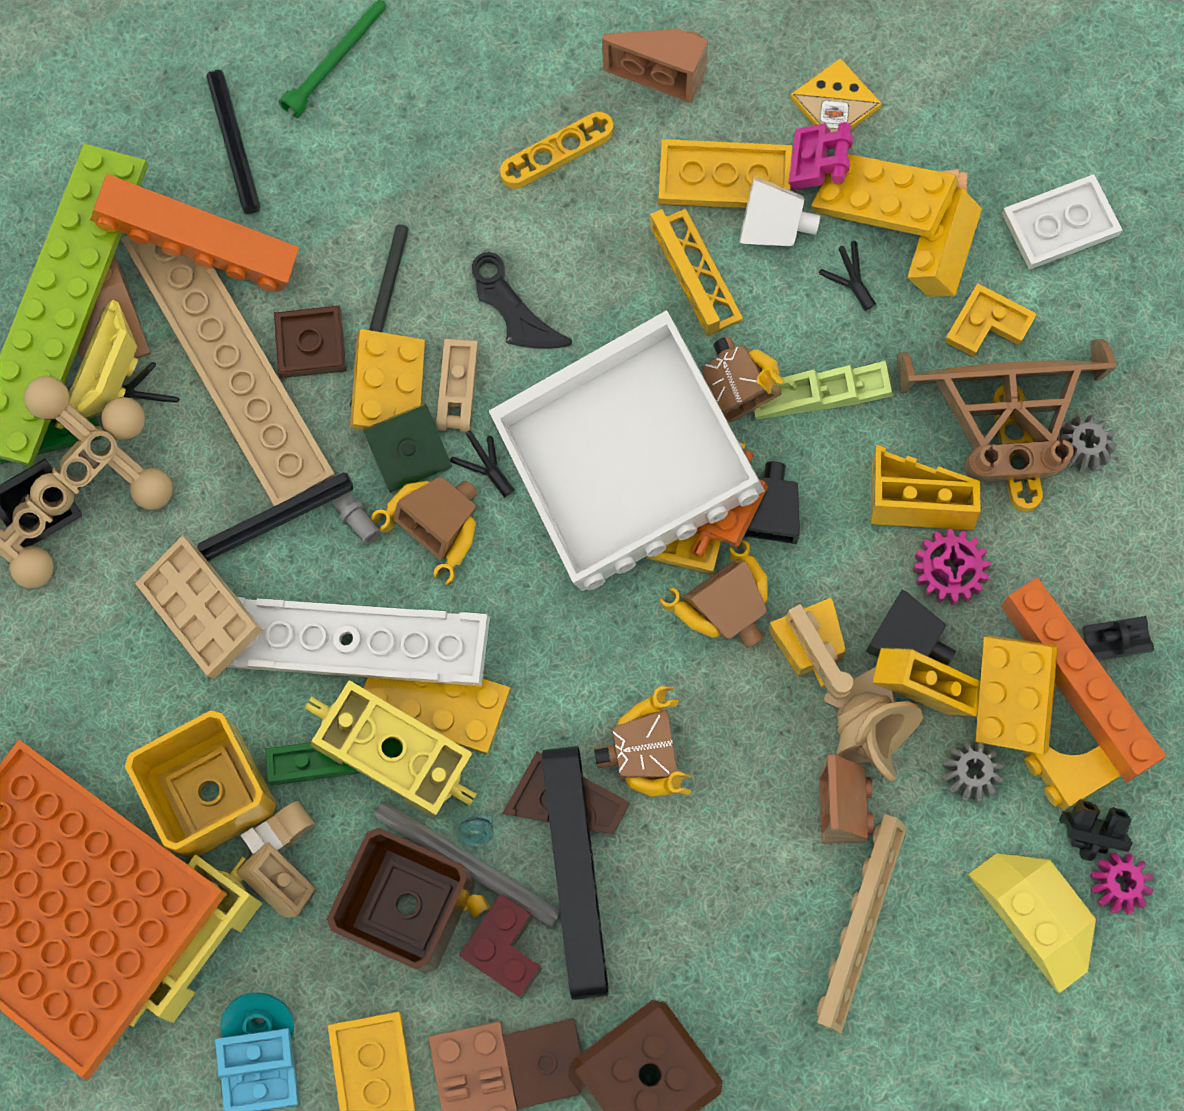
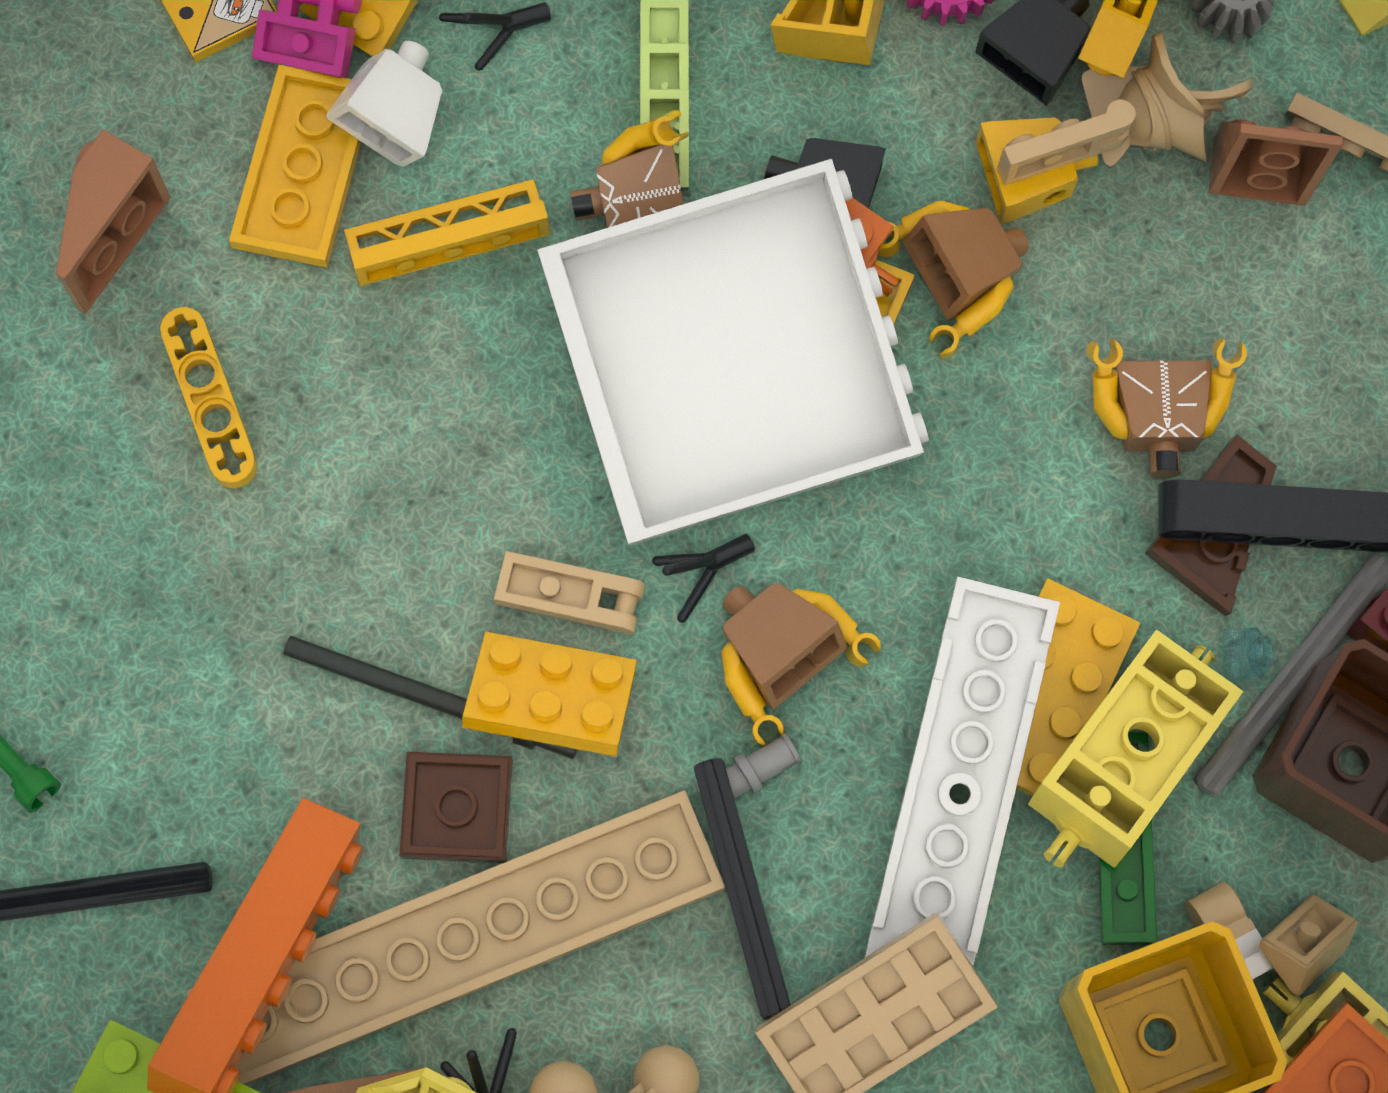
camera: 90 degrees left, 0 degrees up
(407, 447) = (661, 675): dark green plate -> none
(522, 325) = (485, 488): black piece -> none

